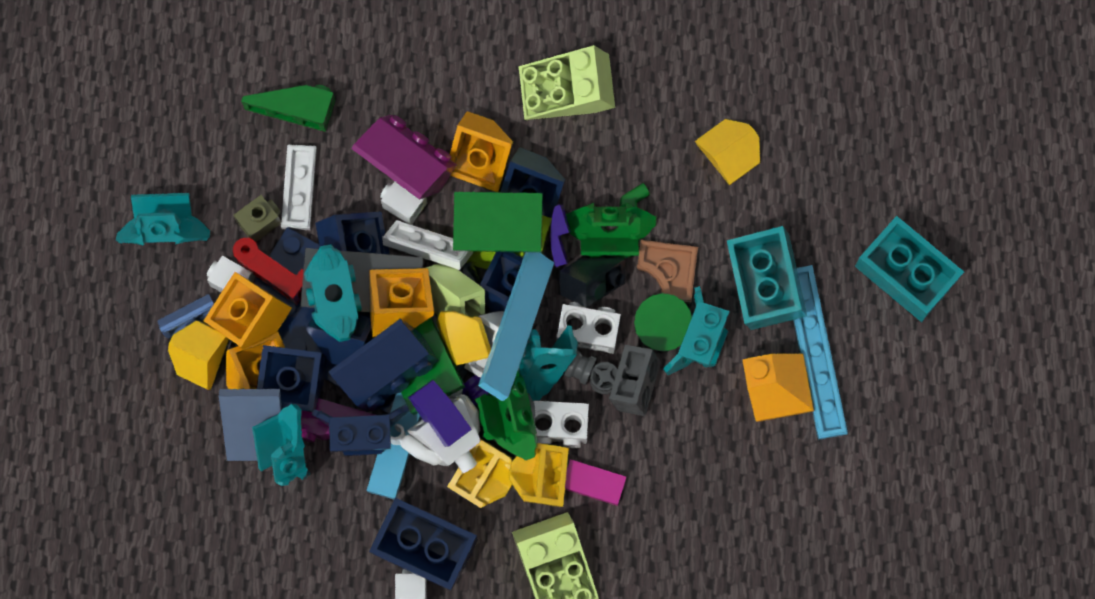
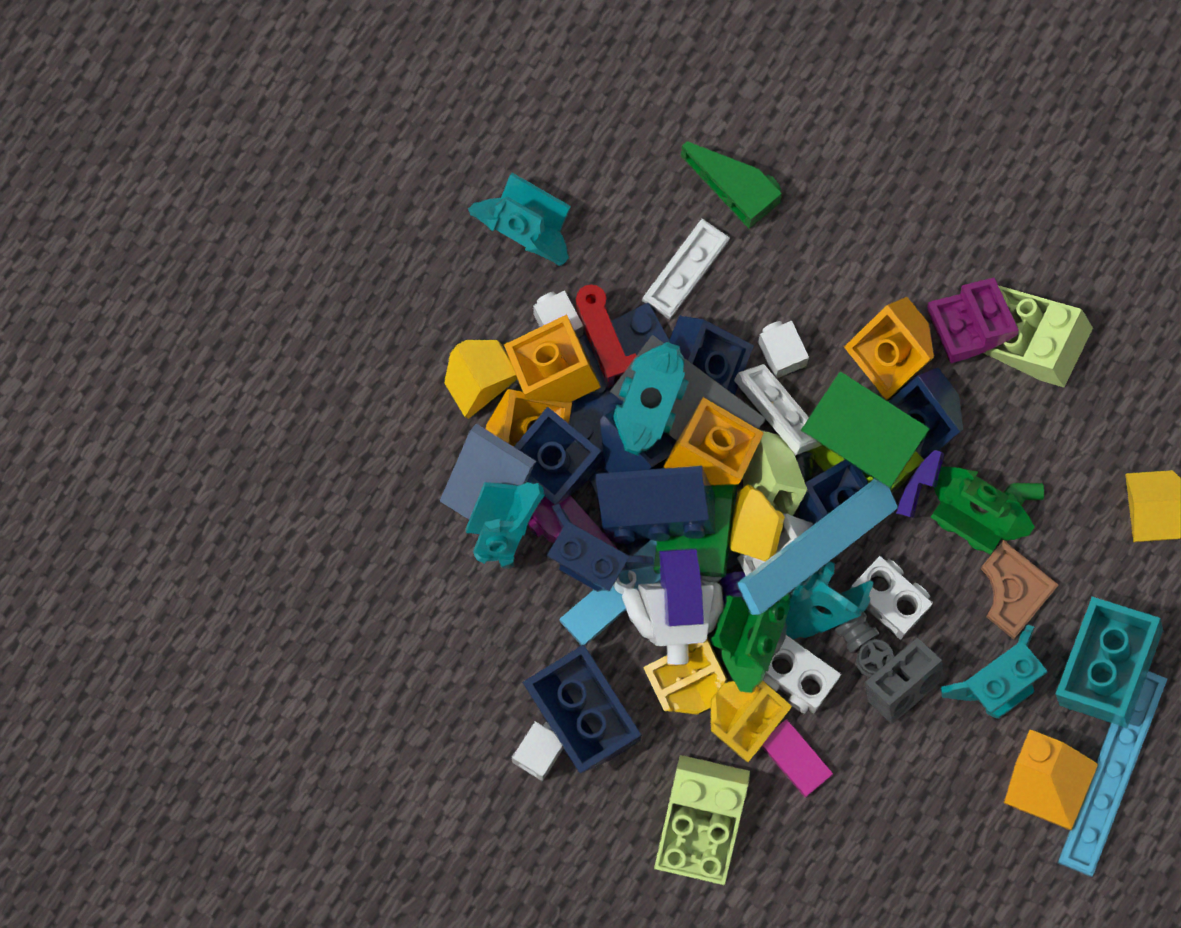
camera: 30 degrees right, 0 degrees up
(185, 316) = (489, 329): medium blue slope -> none
(258, 218) = (625, 275): olive brick -> none
(405, 156) = (813, 304): magenta slope -> none
(523, 99) = (972, 320): none -> magenta slope
(592, 279) = (926, 549): black slope -> none
(662, 322) = (971, 638): green tile -> none

